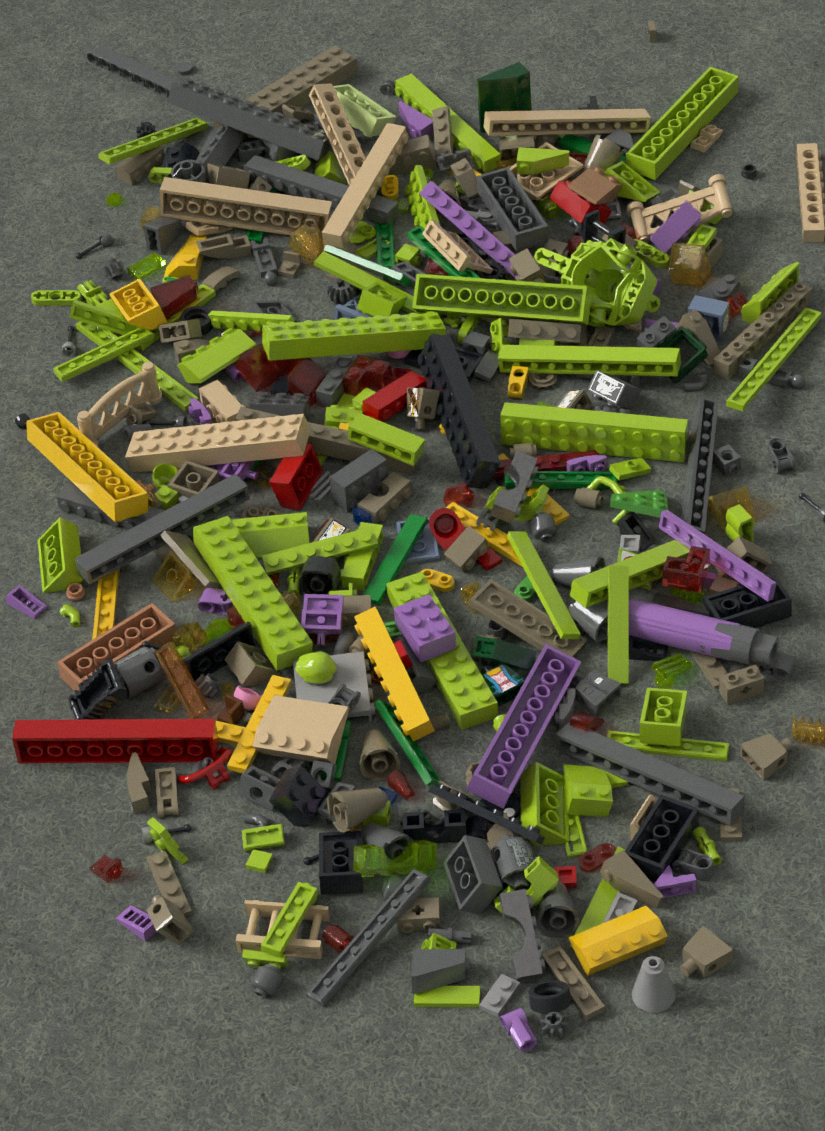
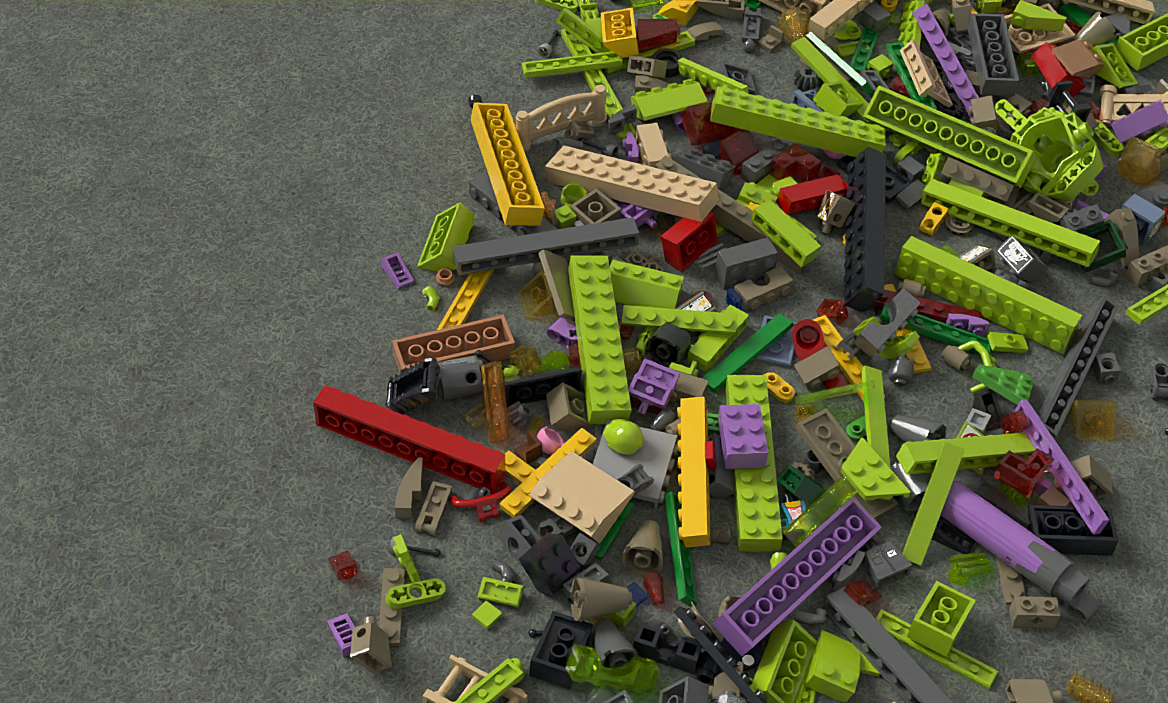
camera: 15 degrees right, 5 degrees up
(178, 388) = (620, 119): none -> dark grey slope
(182, 873) = (408, 599): none -> lime beam
(491, 564) = (834, 392): none -> clear neon green tile
(521, 666) = (819, 511): none -> clear neon green tile
(554, 621) = (871, 474): none -> lime wing
(555, 756) = (809, 618): none -> light grey arm
(619, 336) = (1046, 208): none -> dark tan slope
(663, 533) = (1014, 422): none -> clear red plate
(739, 524) = (1094, 440): lime brick -> none

